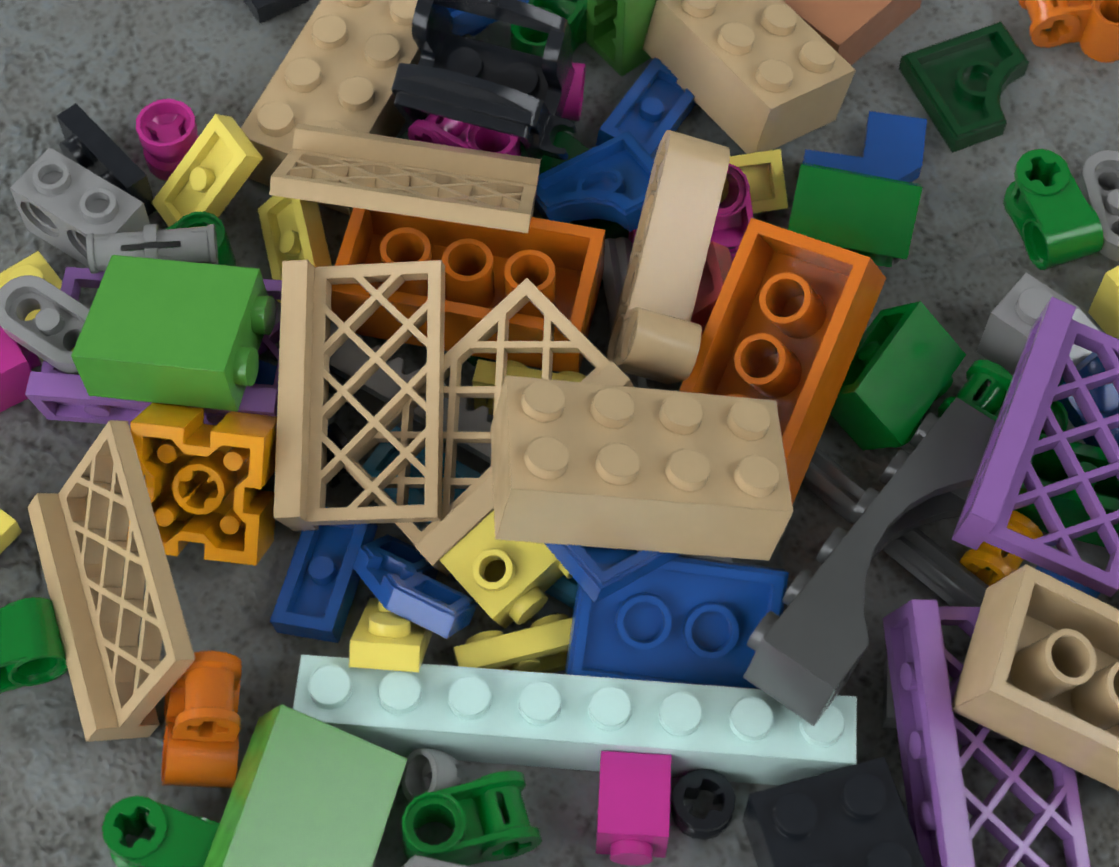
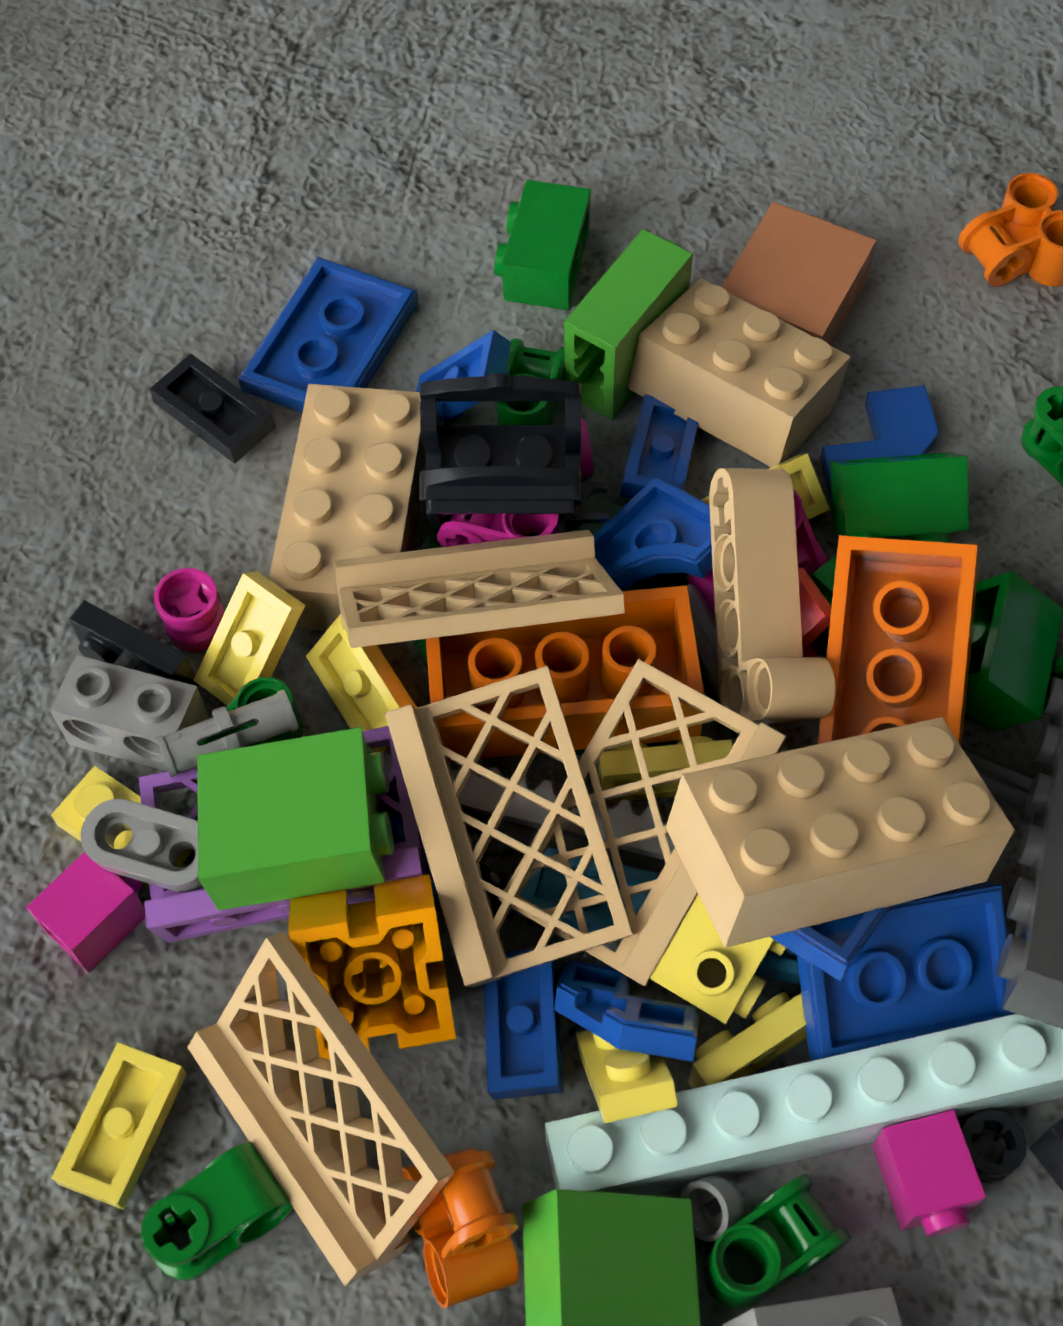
camera: 15 degrees left, 0 degrees up
(964, 81) = (942, 342): dark green tile -> none

